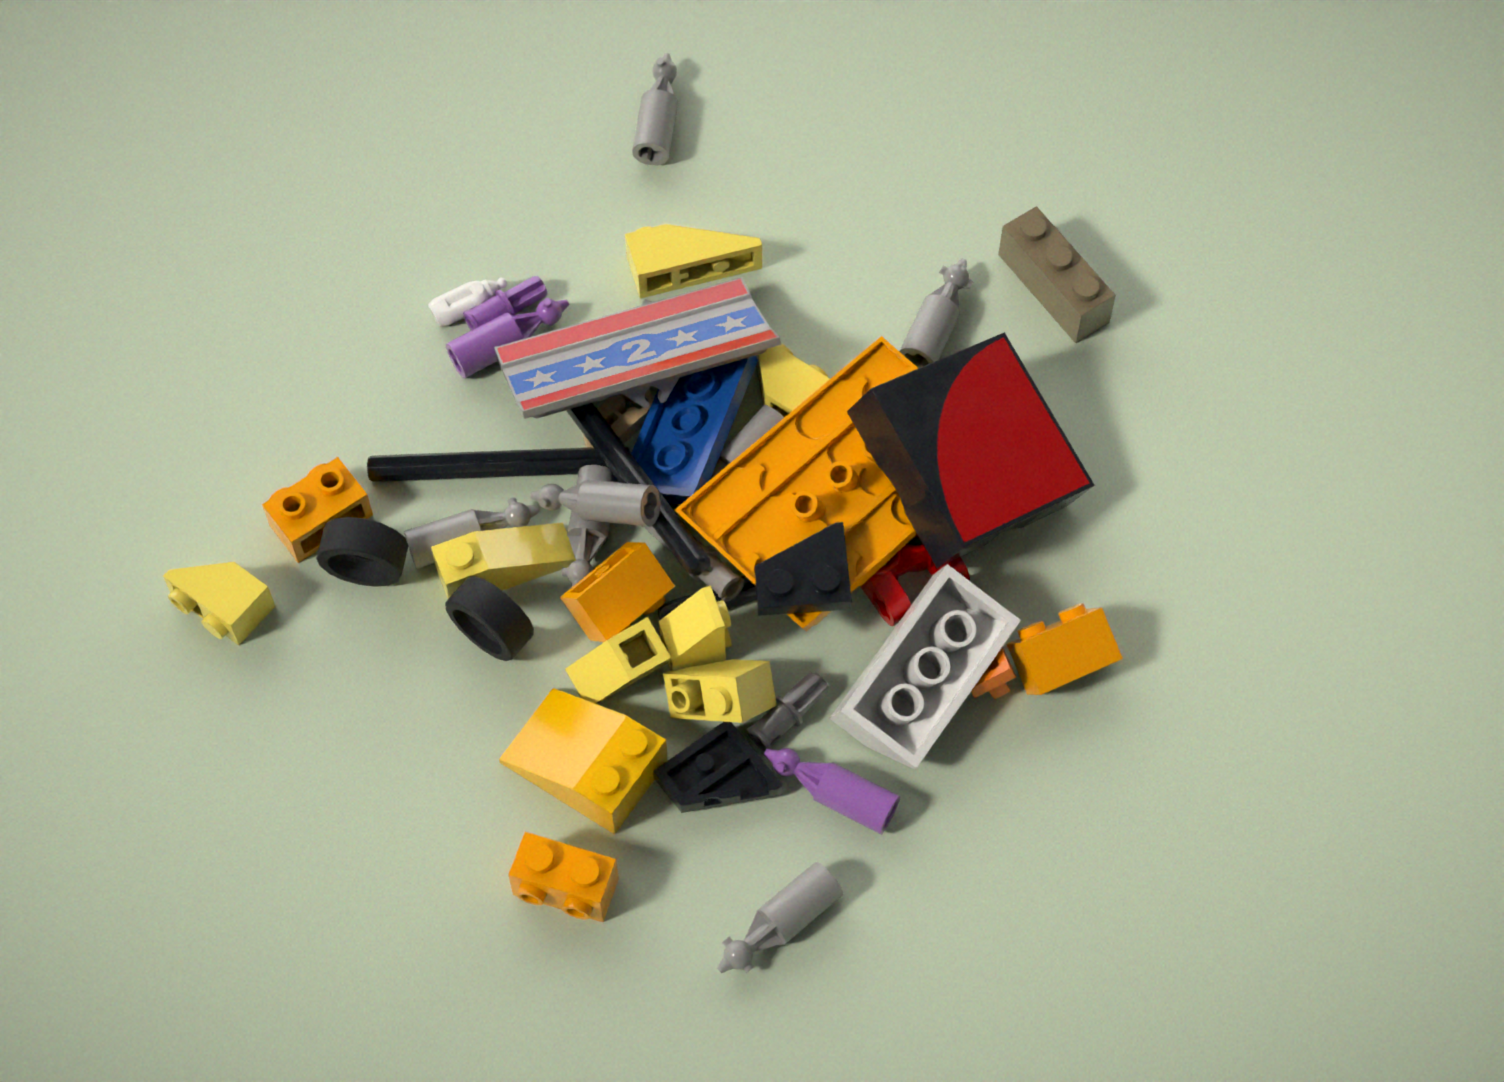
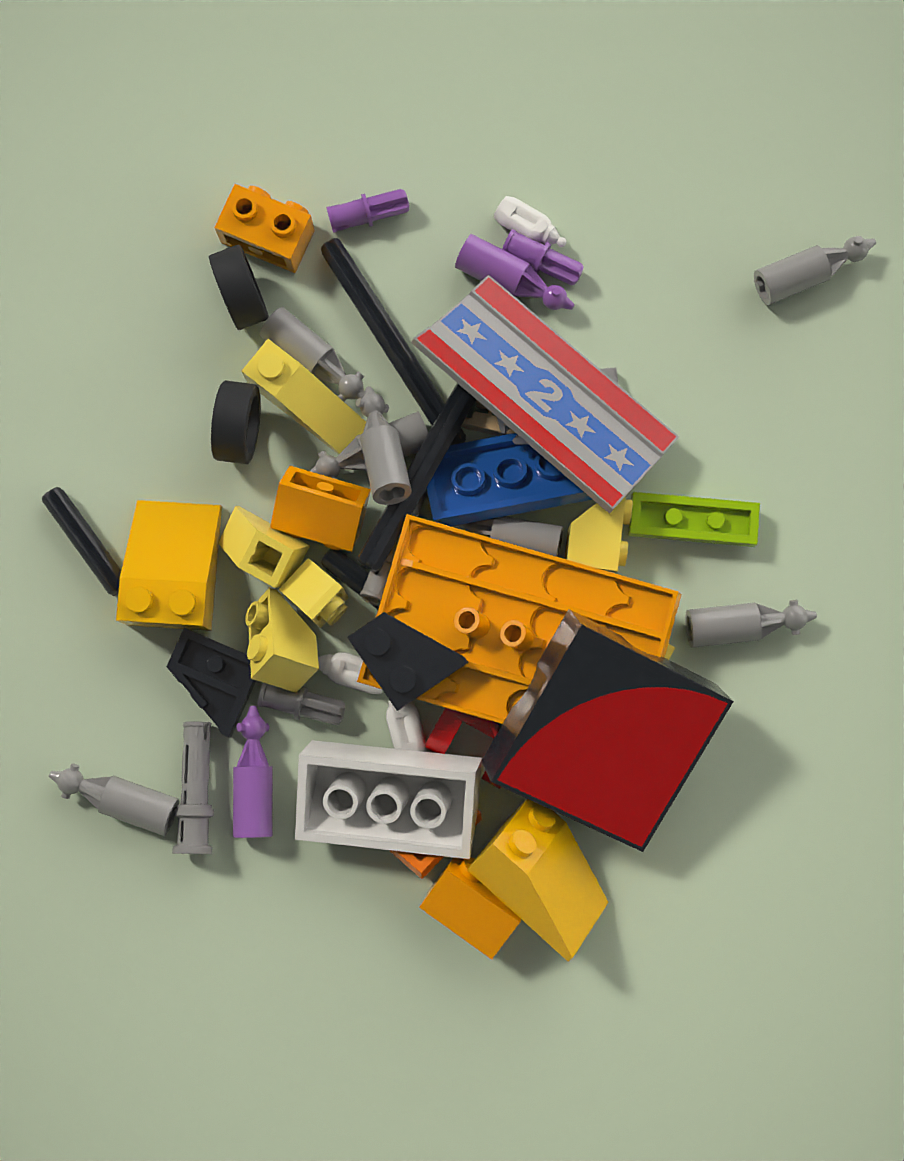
camera: 60 degrees right, 20 degrees up
(223, 596) = (147, 208): light yellow slope -> none
(359, 421) = (367, 210): none -> medium lavender axle
(508, 824) = (83, 539): none -> black axle
(563, 877) = (55, 611): light orange brick -> none
(681, 257) = (669, 369): light yellow slope -> none
(790, 649) = (344, 670): none -> white piece
(824, 305) = (694, 519): none -> lime plate
(833, 853) = (194, 810): none -> light grey pin
(857, 632) = (406, 728): none -> white piece
(1056, 274) = (848, 703): dark tan brick -> none
(1058, 578) = (542, 877): none -> yellow slope

